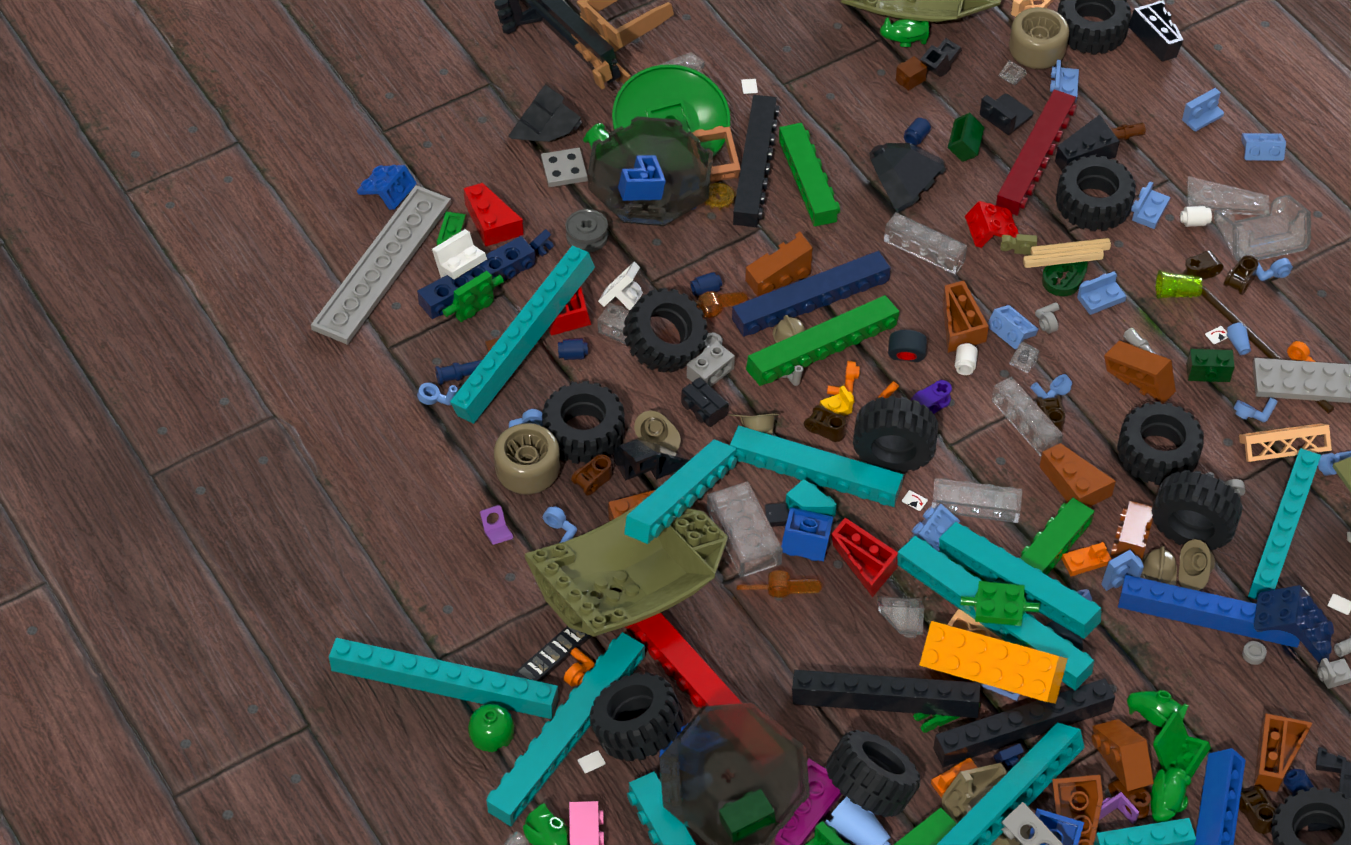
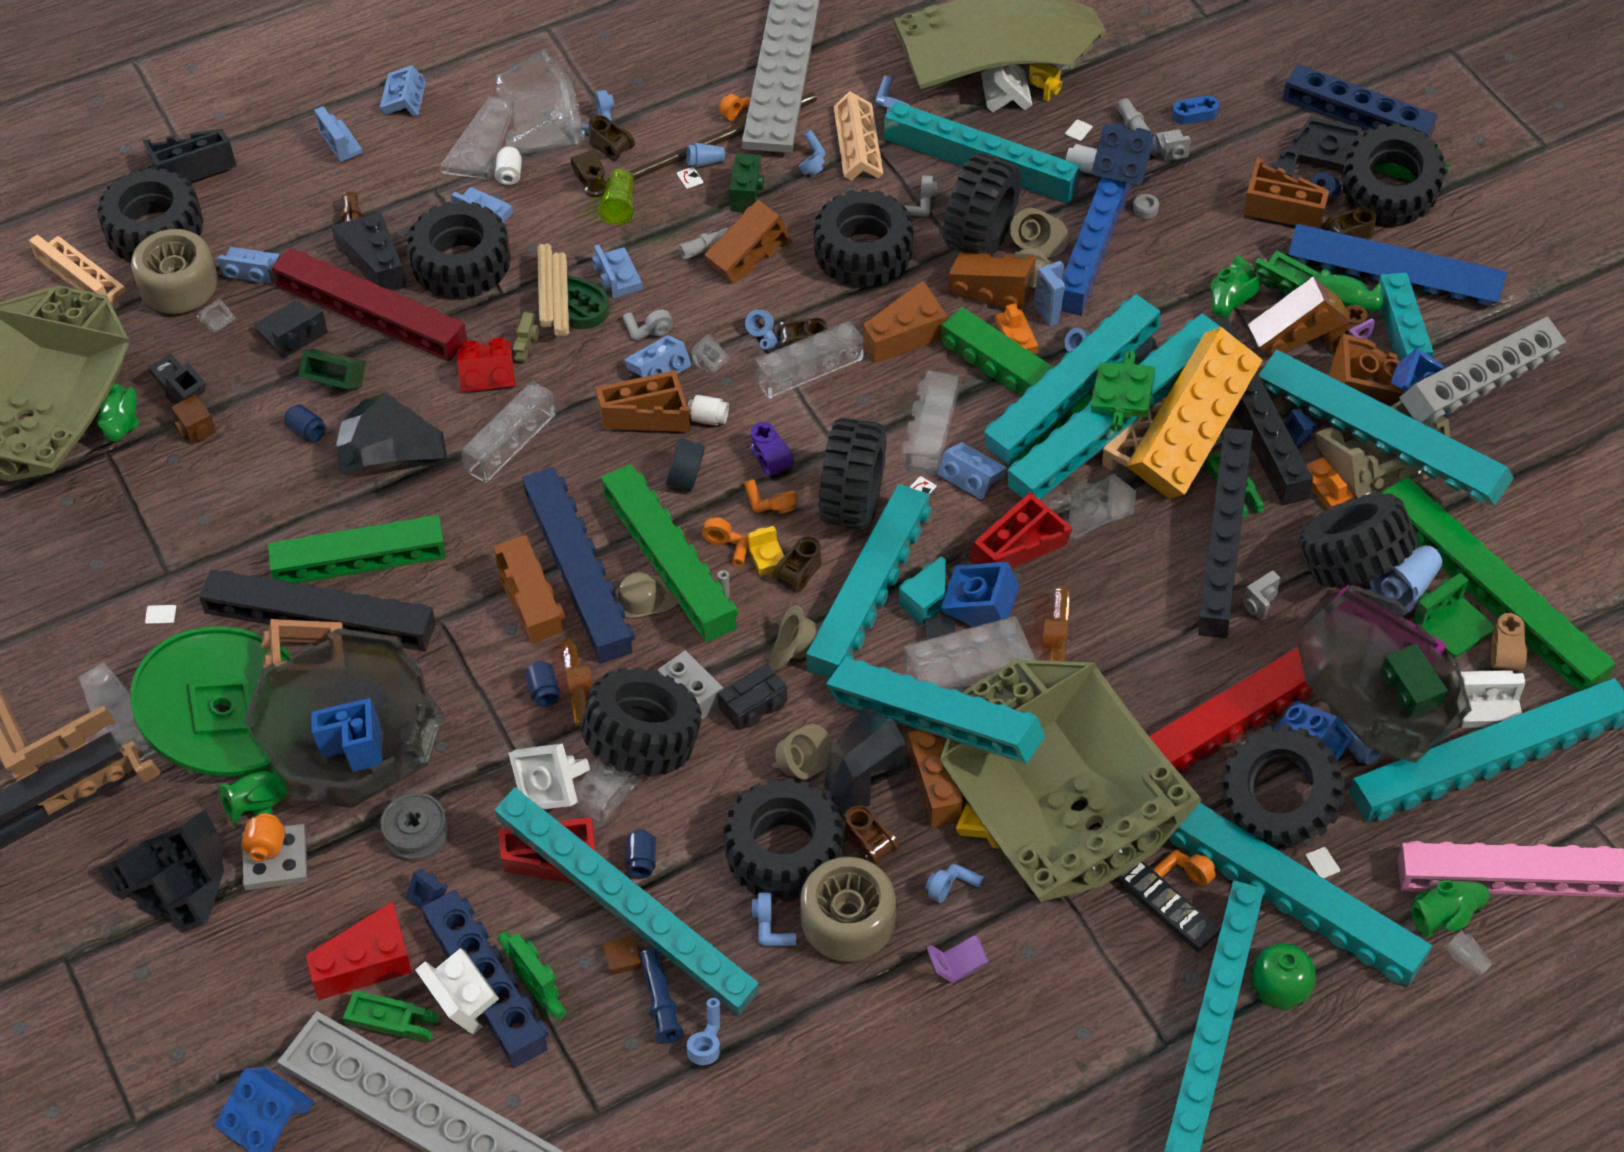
camera: 85 degrees left, 0 degrees up
(568, 152) = (263, 837): none -> orange head
(833, 720) = (1260, 594): none -> light grey bracket

